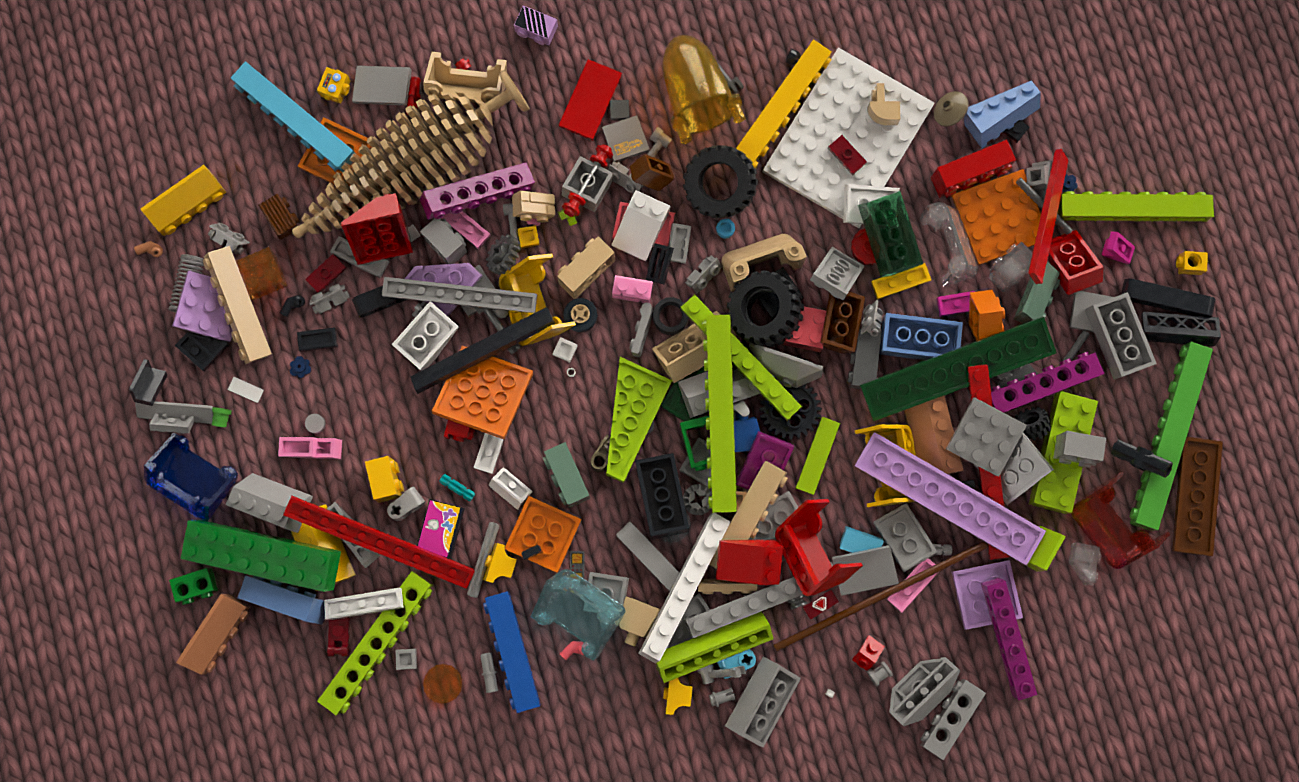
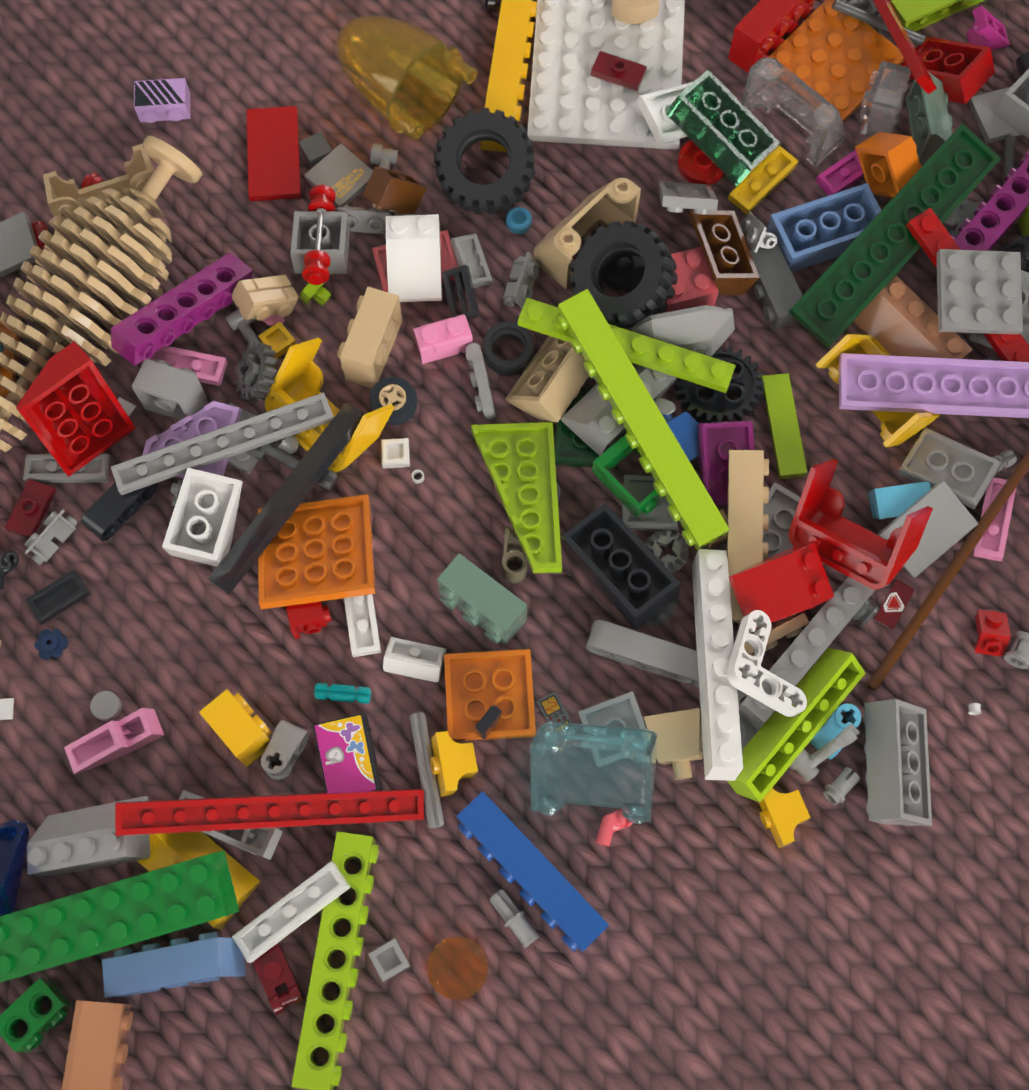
camera: 25 degrees left, 10 degrees down
(700, 603) = (752, 668): none -> white beam

